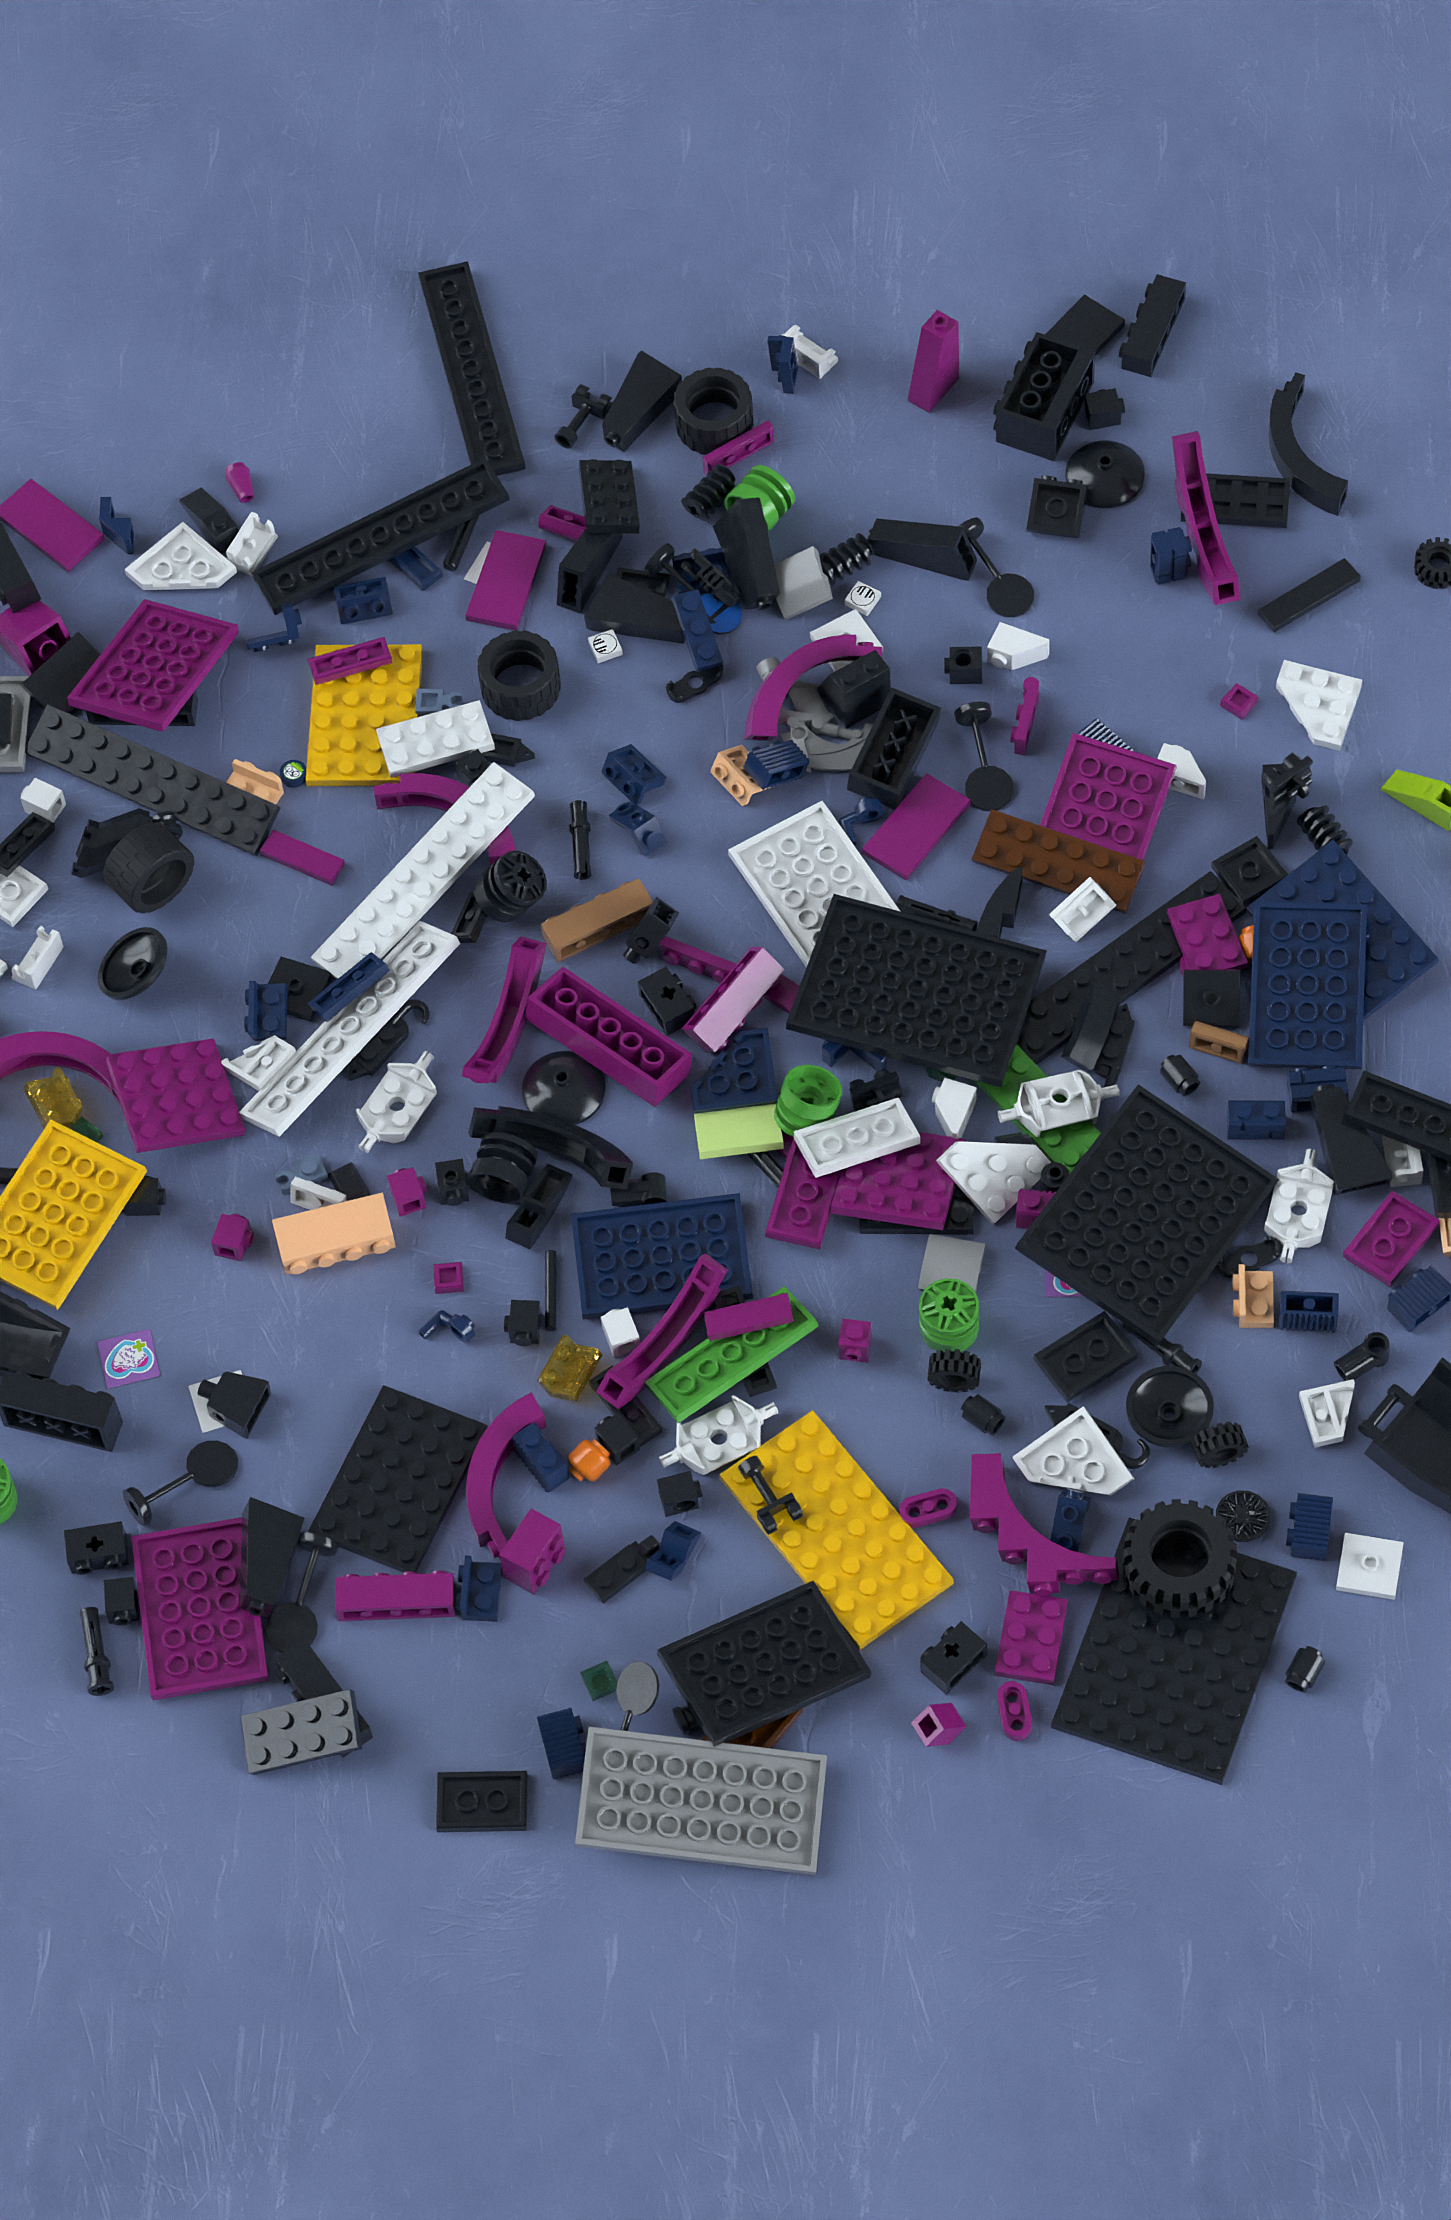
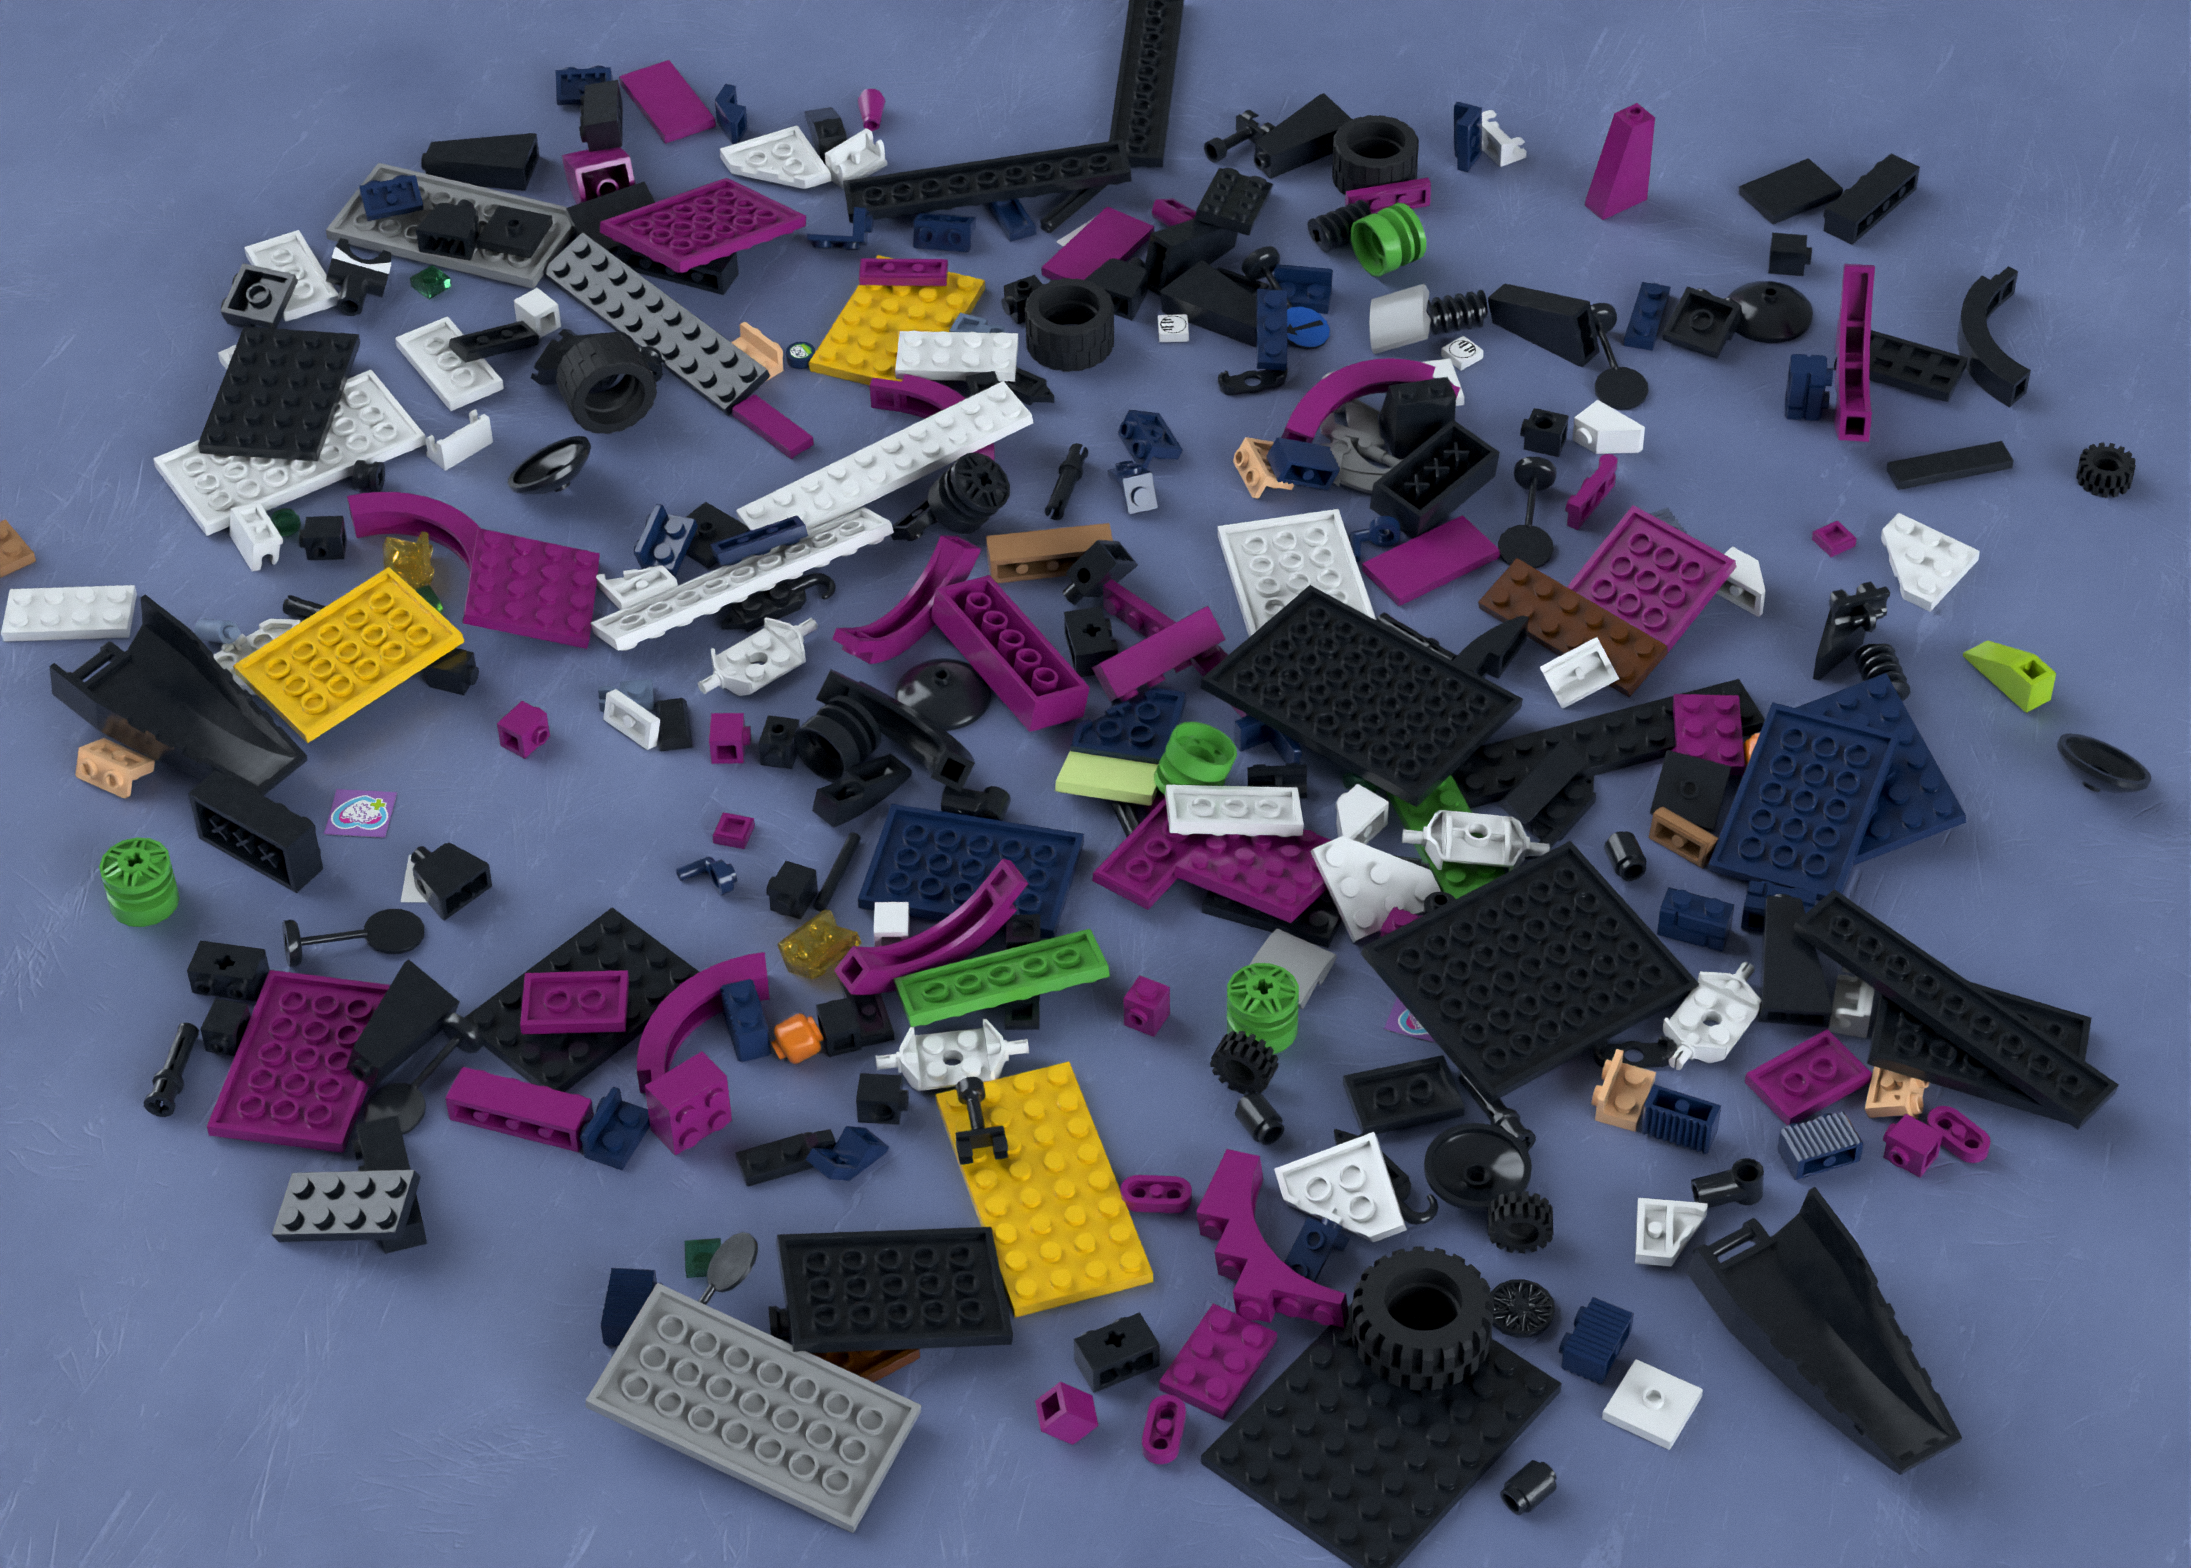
camera: 15 degrees right, 15 degrees down
(334, 1234) = (629, 750): light nougat slope -> none
(399, 1488) = (574, 1002): none -> magenta plate
(464, 655) = (1016, 295): none -> black brick
(482, 1801) = (513, 1342): black tile -> none
(543, 614) = (1124, 282): none -> black torso
(711, 579) = (1307, 292): black hinge -> none
(748, 552) = (1355, 275): black slope -> none
(748, 1317) = (1035, 944): magenta tile -> none
(1005, 510) = (1647, 316): none -> dark blue plate
(1044, 396) = (1727, 224): black brick -> none
(1249, 870) = (1782, 683): black plate -> none

